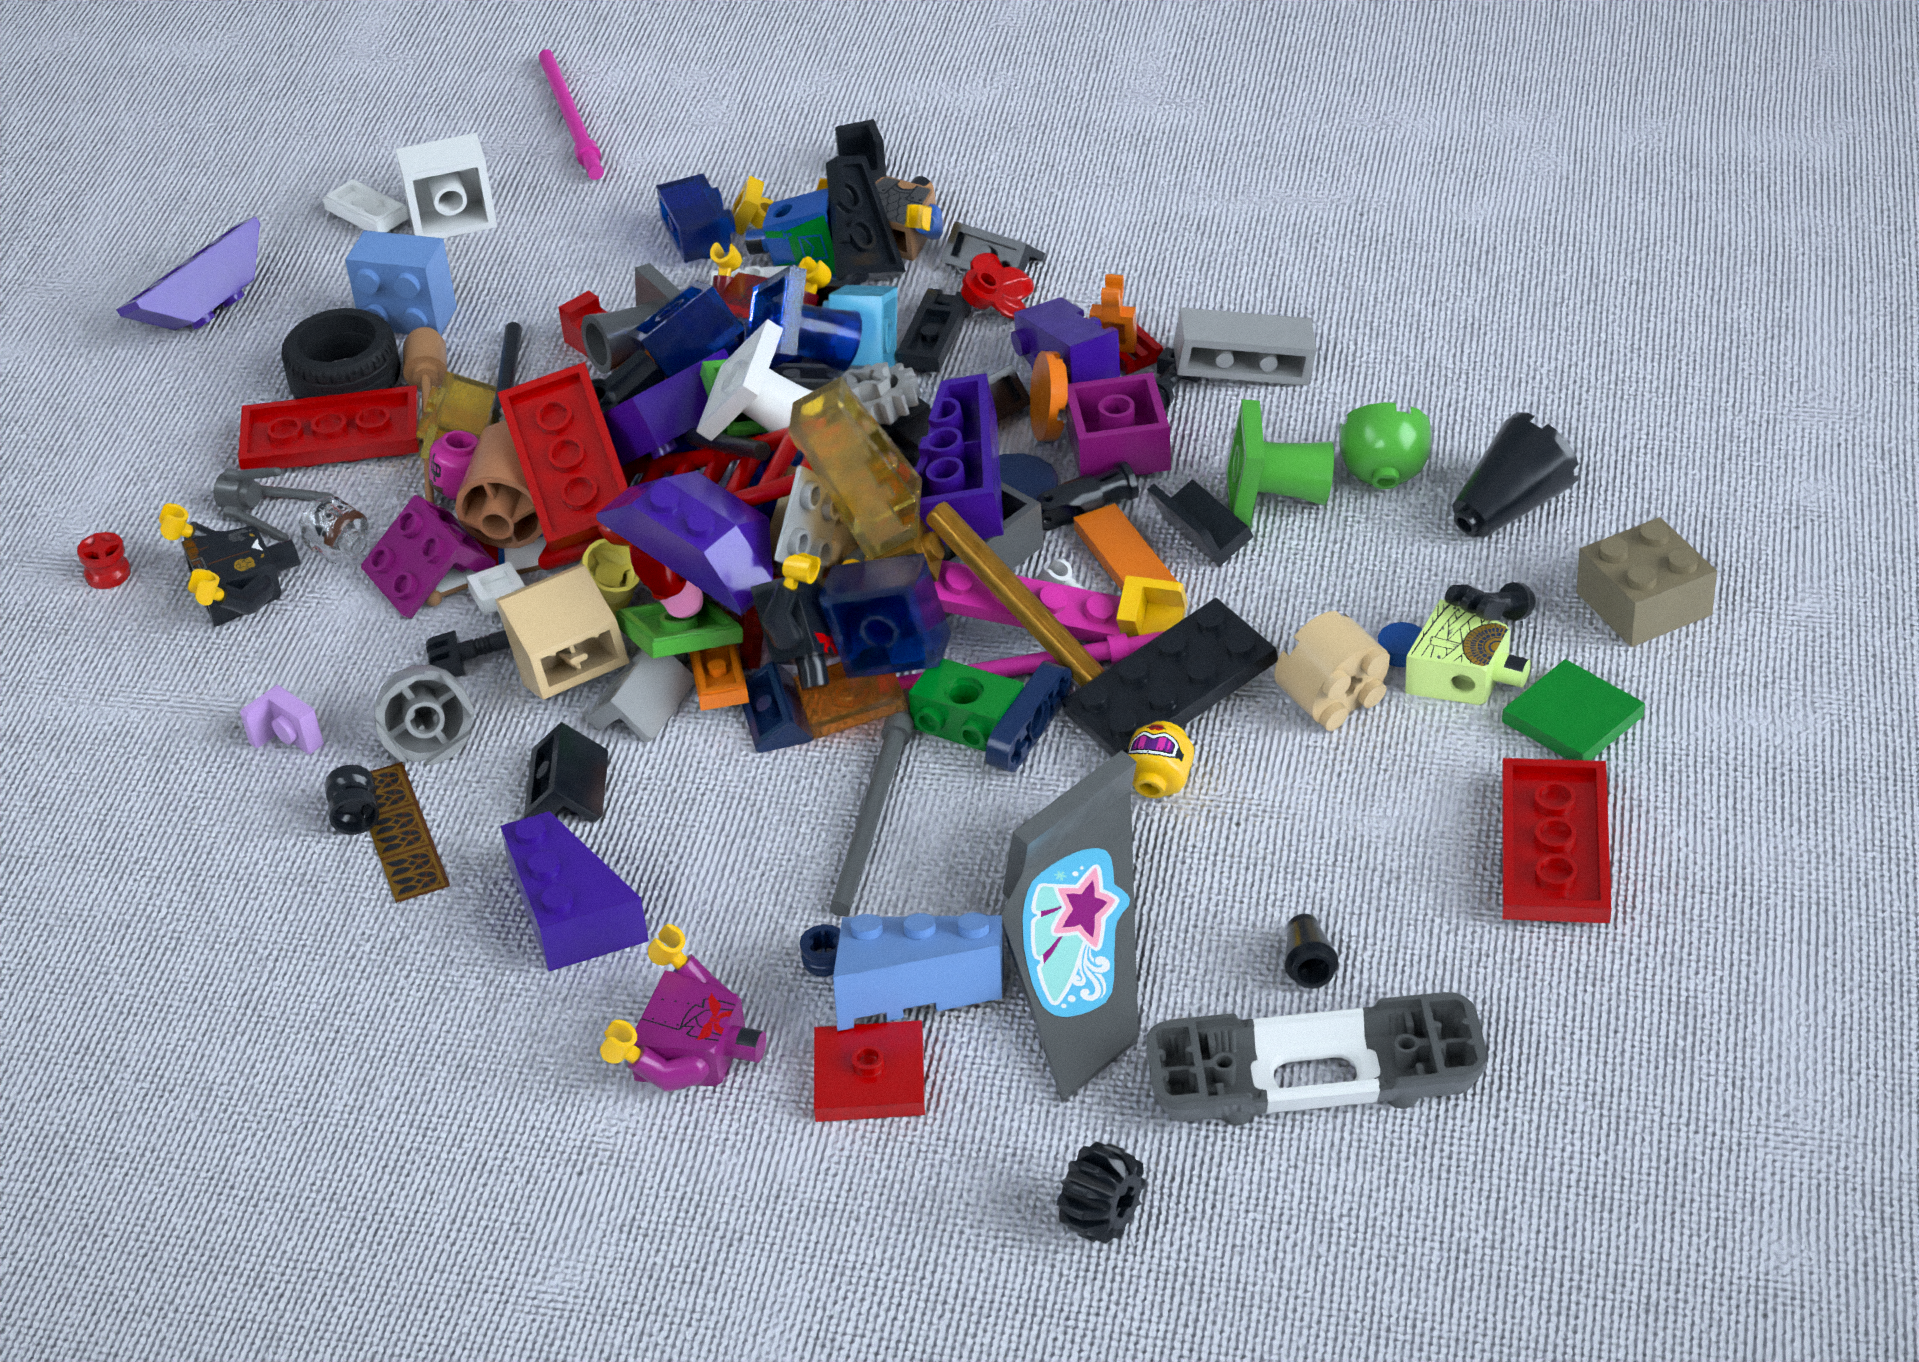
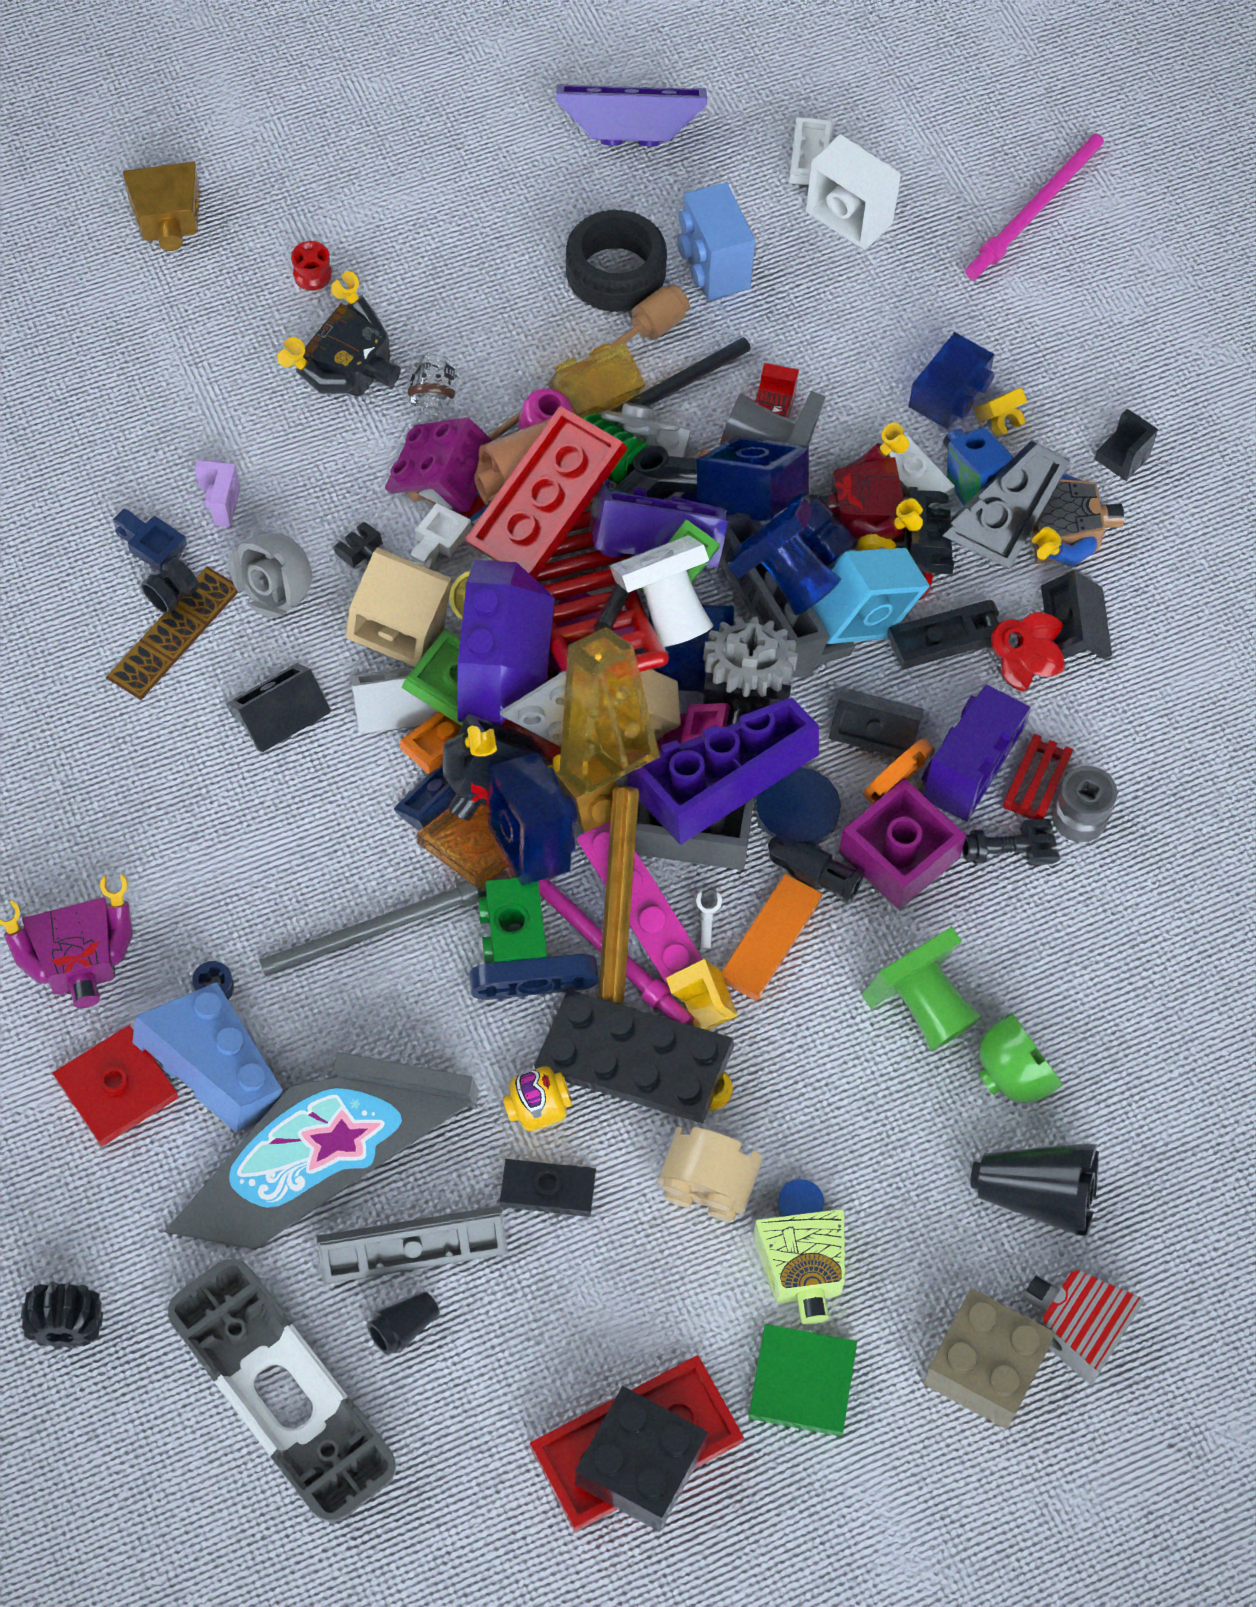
camera: 50 degrees right, 20 degrees up
(239, 492) = (437, 301): dark grey plant -> none
(283, 793) = (150, 541): none -> dark blue plate
(329, 429) = (541, 303): red plate -> none
(570, 893) = (155, 779): dark purple wedge -> none
(1115, 315) = (1024, 764): orange plate -> none
(1166, 297) = (1084, 804): none -> flat silver wheel
(1202, 521) = (838, 969): black panel -> none
(1233, 911) = (412, 1245): none -> plate
(1244, 346) = (1075, 879): light grey brick -> none
(1249, 800) = (547, 1187): none -> black plate
(1513, 601) = (903, 1265): black hinge -> none
(1585, 817) = (641, 1458): none -> black brick
(1655, 495) = (1086, 1318): none -> torso

